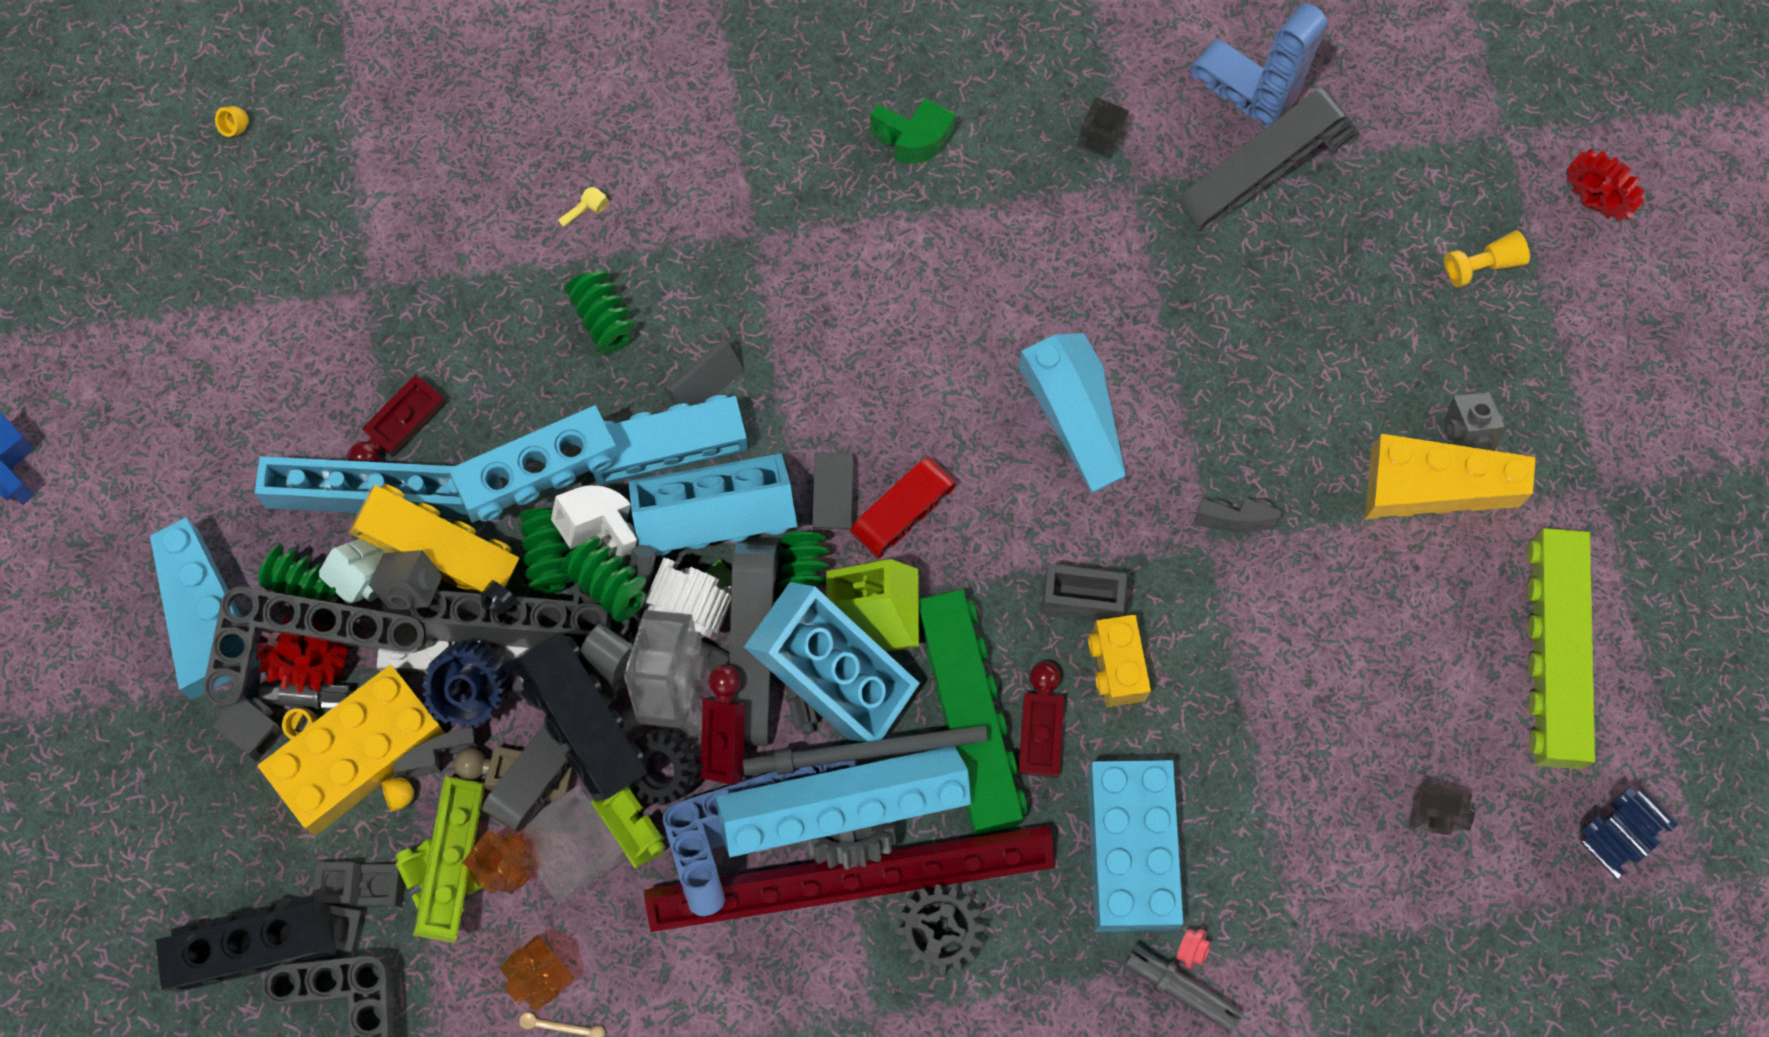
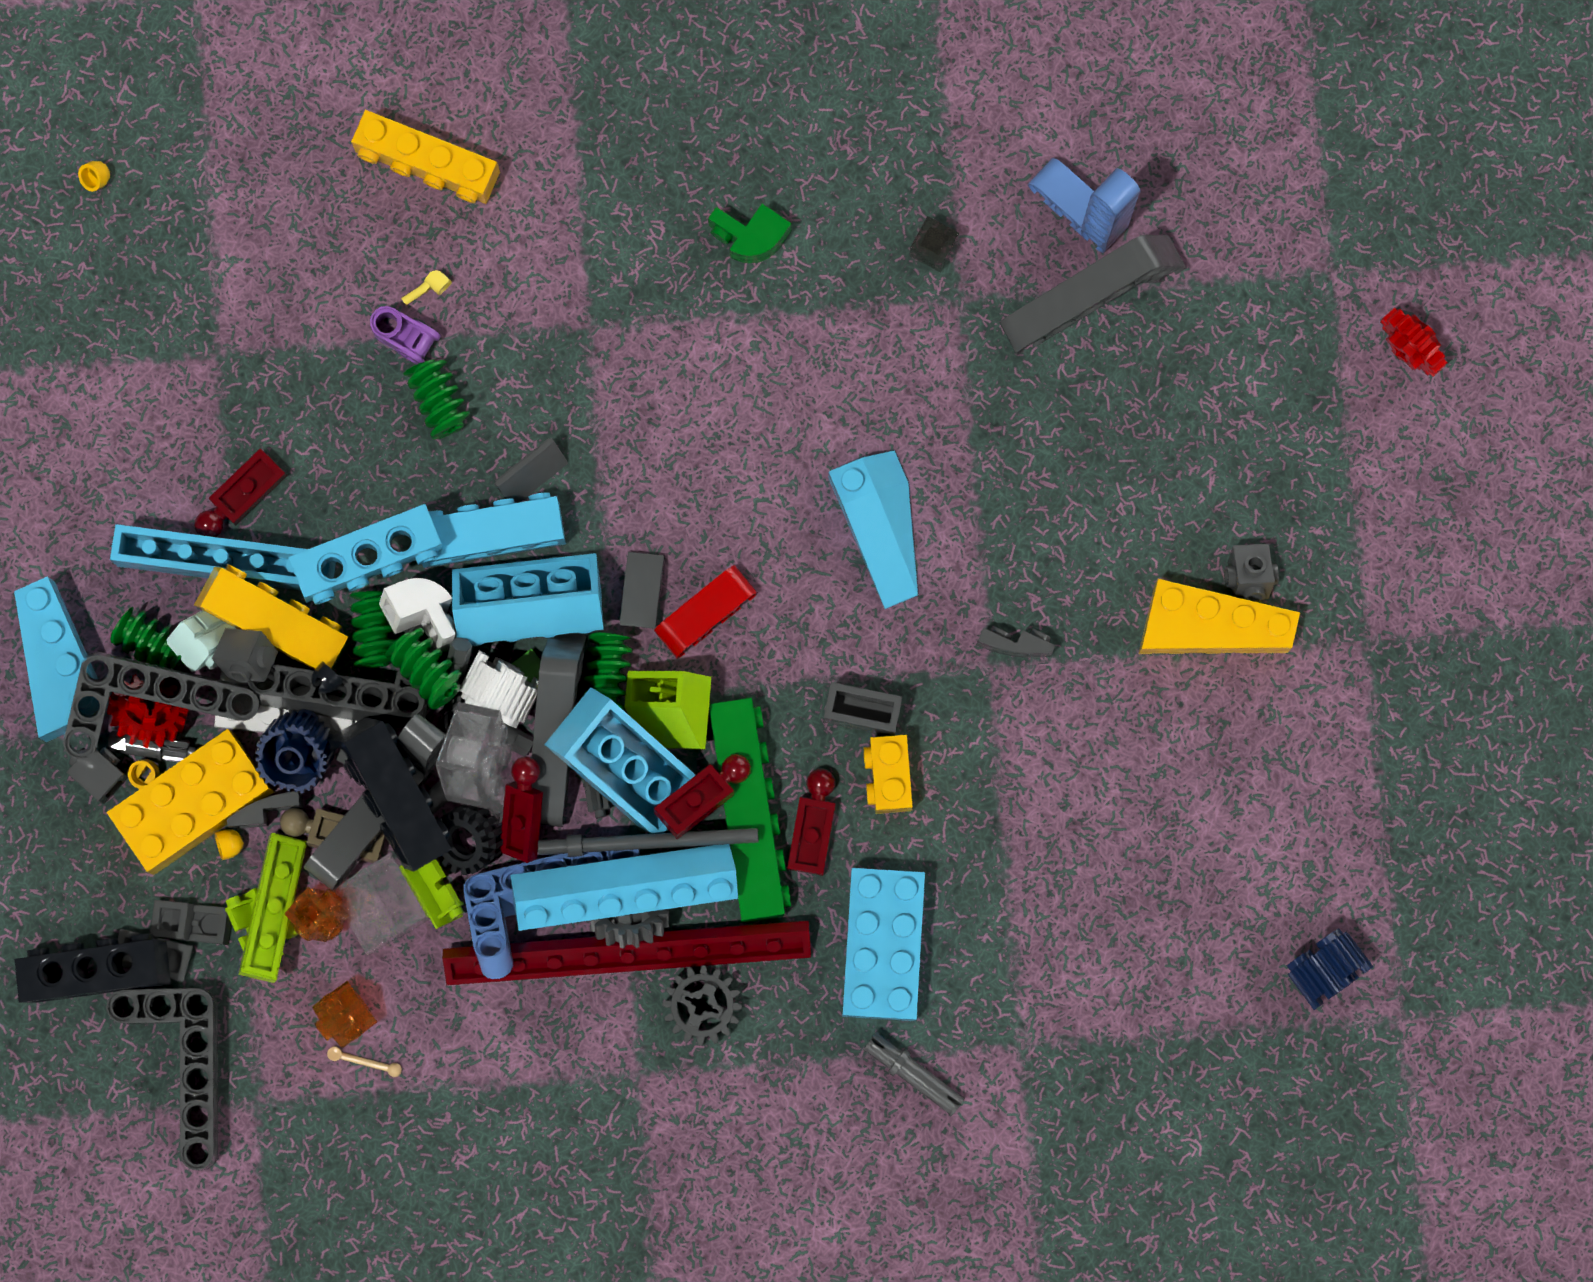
camera: 10 degrees right, 10 degrees up
(567, 255) = (405, 335): none -> medium lavender piece
(574, 79) = (426, 157): none -> yellow brick
(919, 695) = (701, 795): none -> dark red plate
(1193, 948) = (927, 1039): coral plate -> none
(1441, 809) = (1167, 934): clear smoke brick -> none
(1503, 253) = (1304, 402): yellow piece -> none
(1561, 649) = (1301, 793): lime brick -> none

